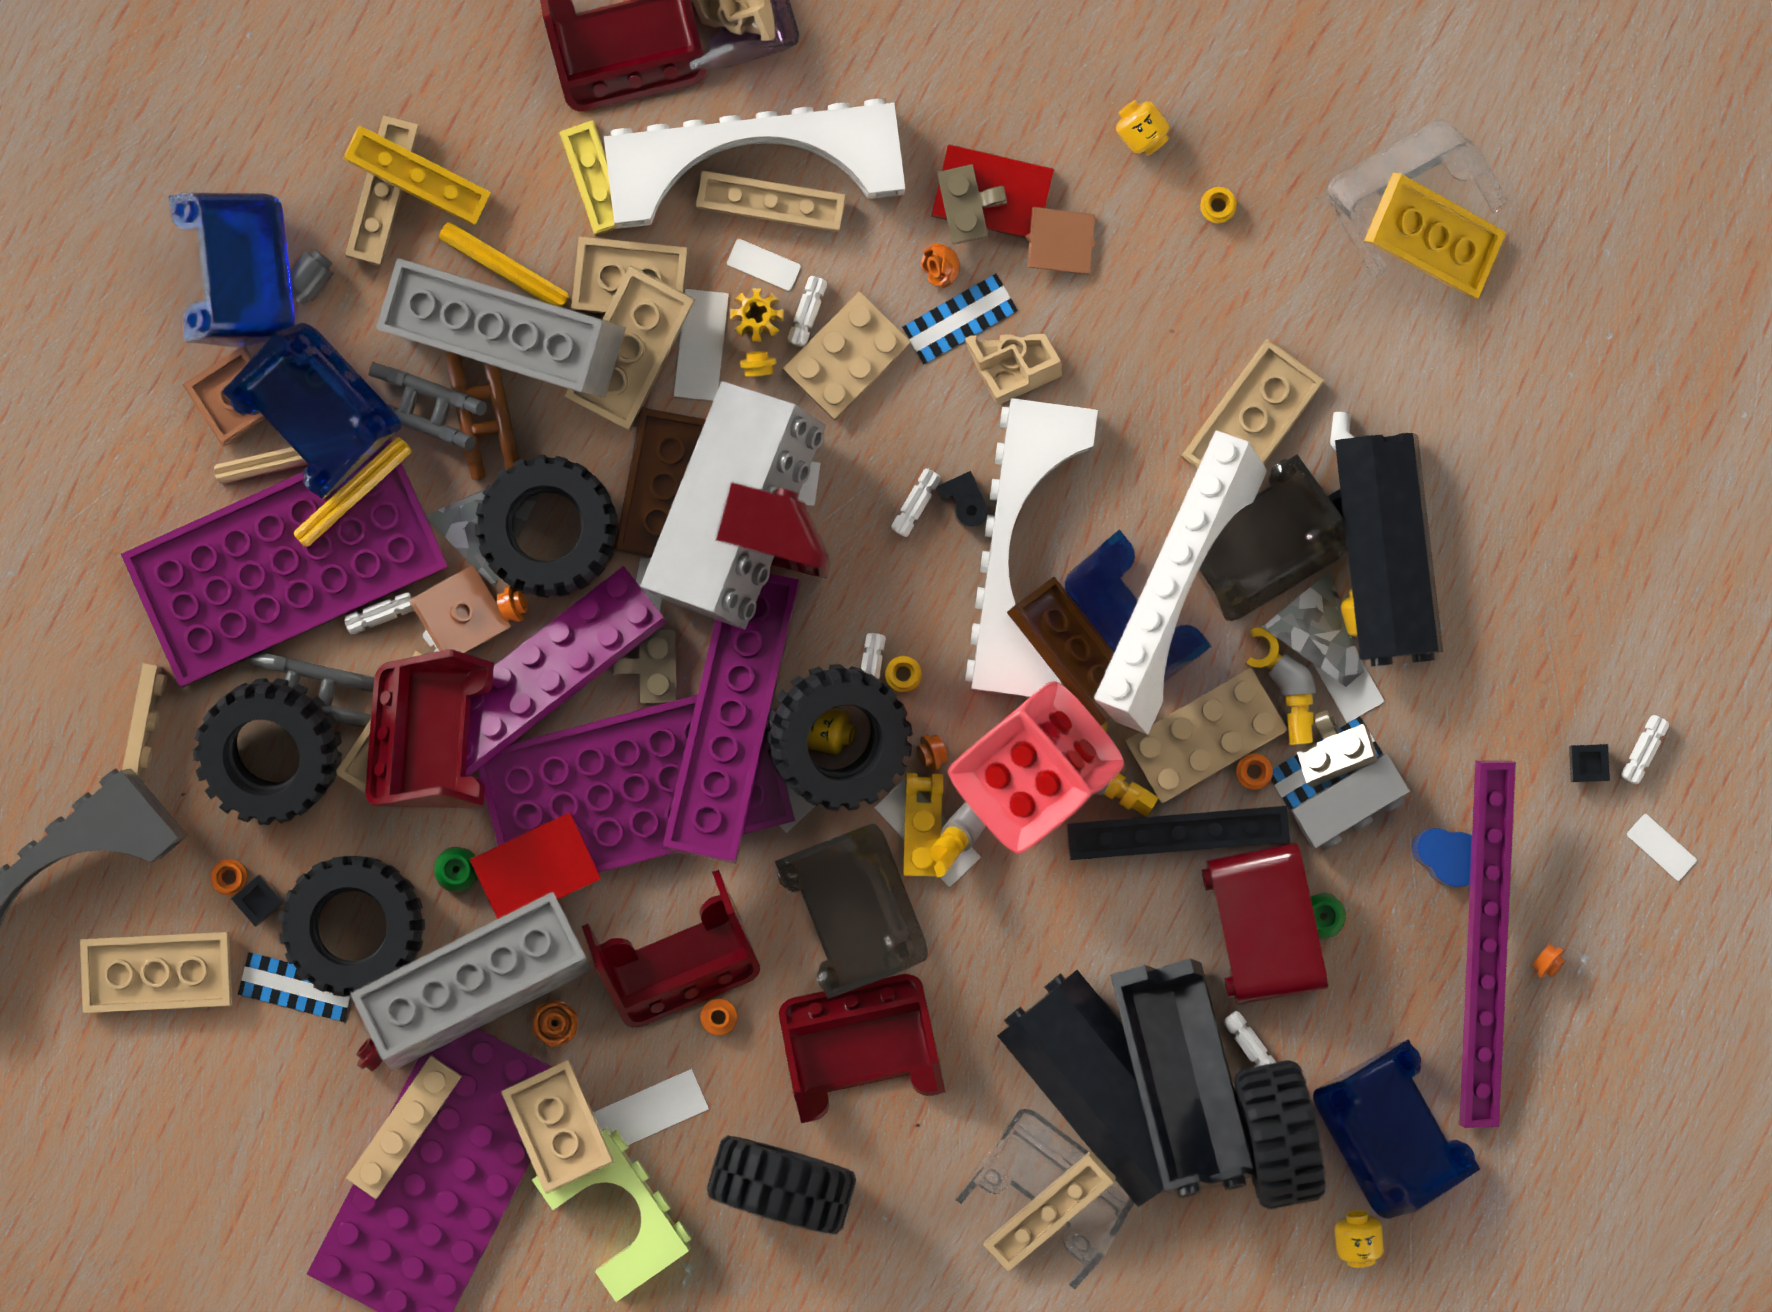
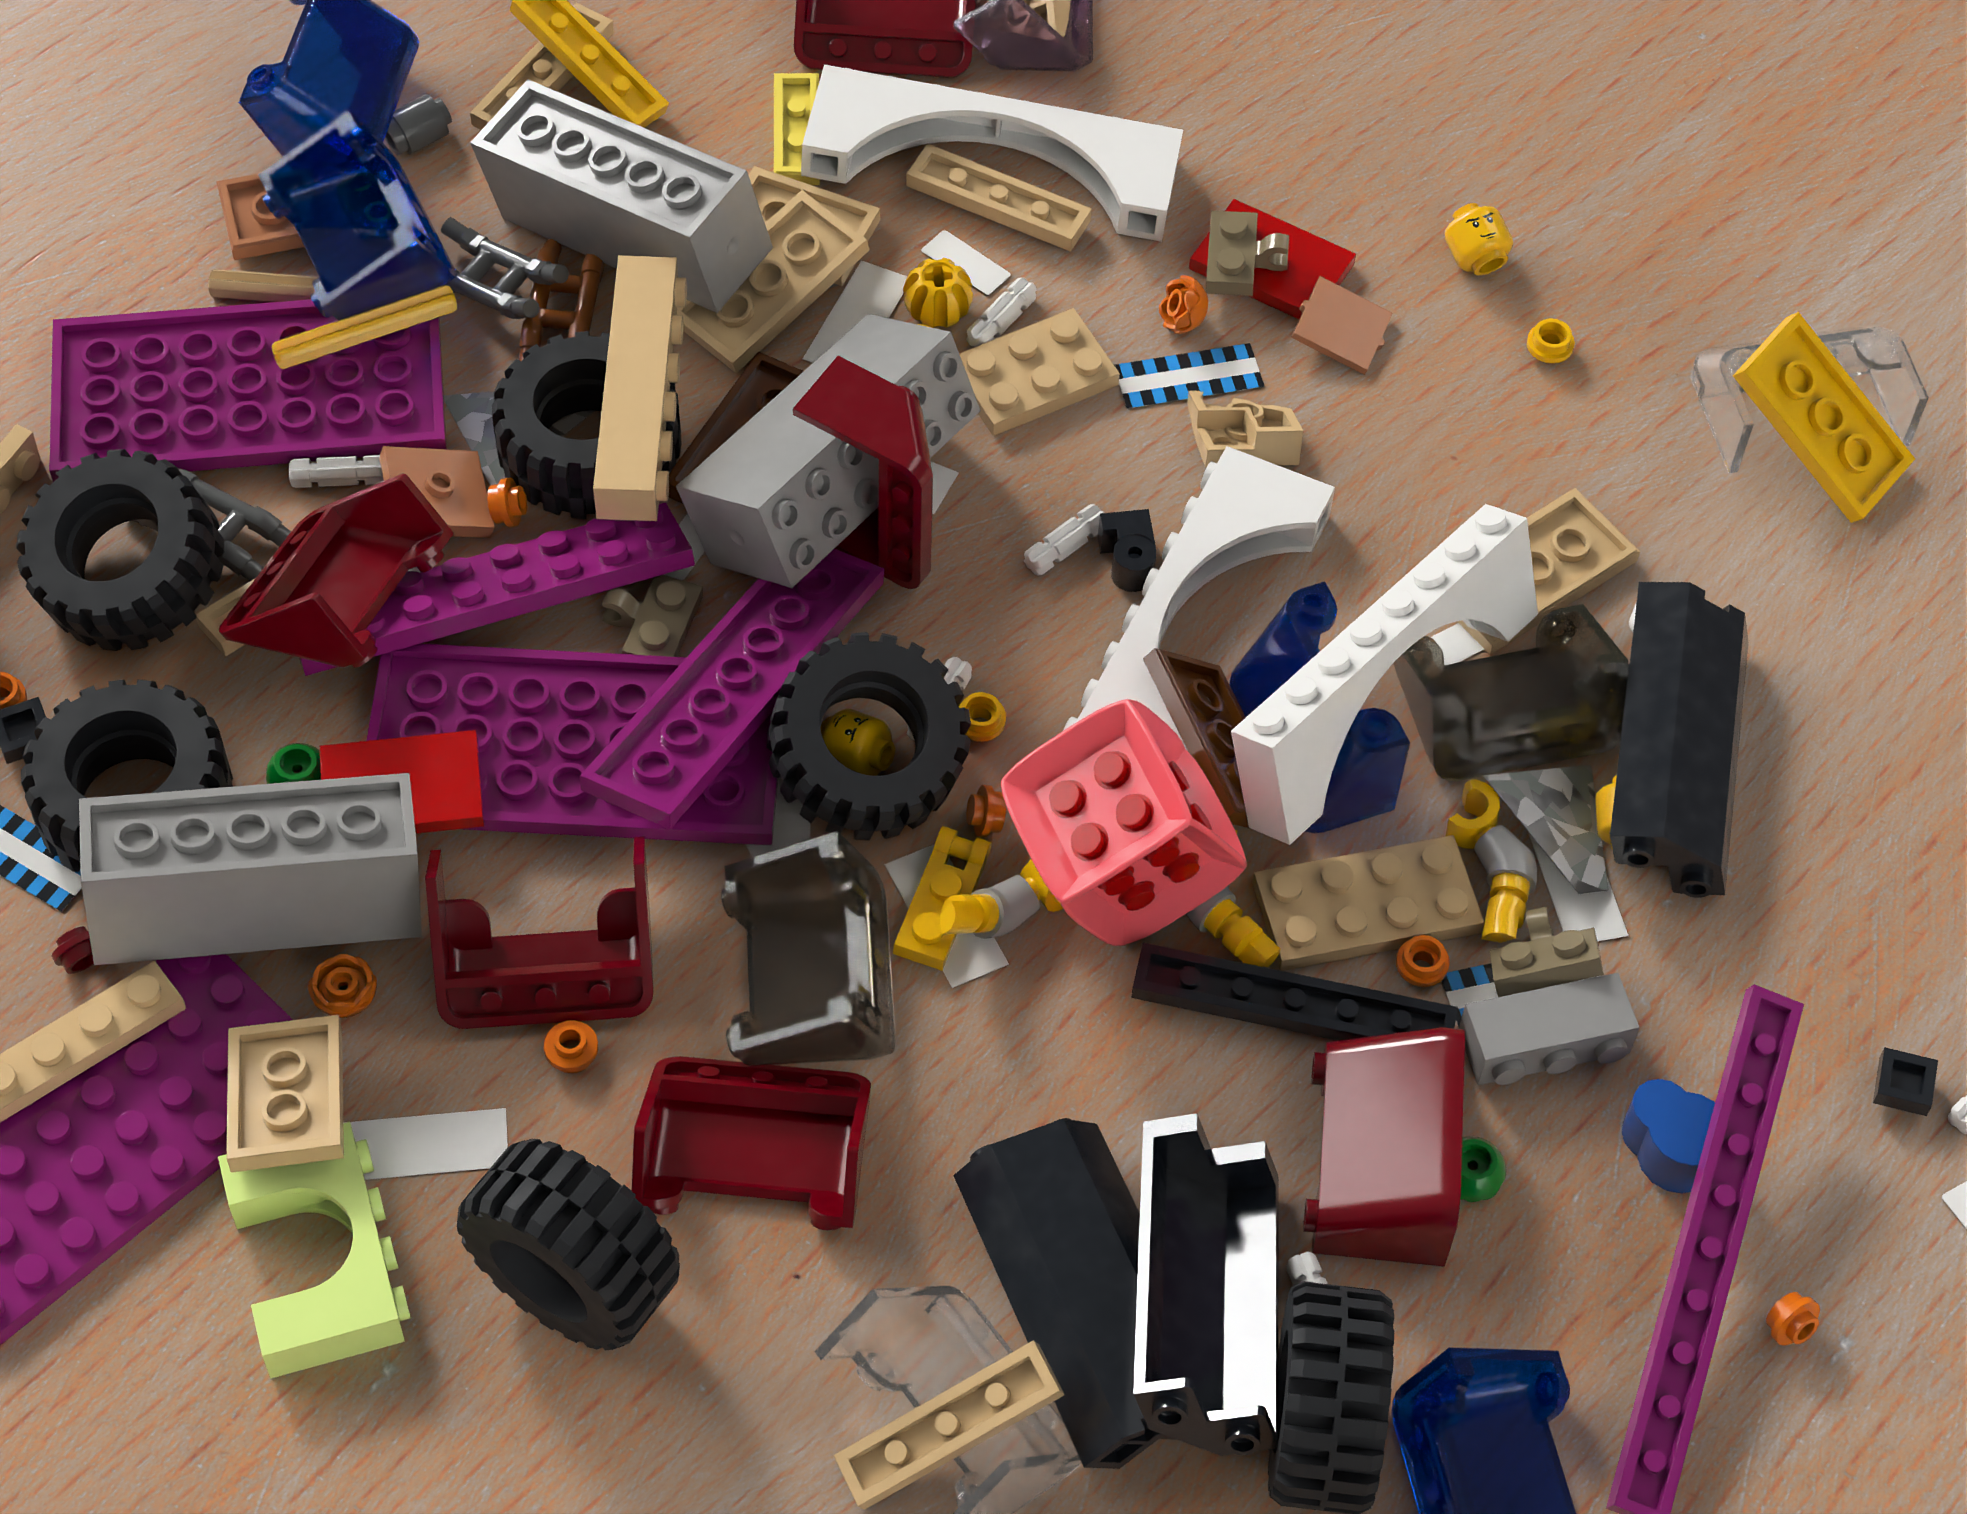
camera: 15 degrees right, 30 degrees down
(583, 512) = (637, 389): none -> tan brick

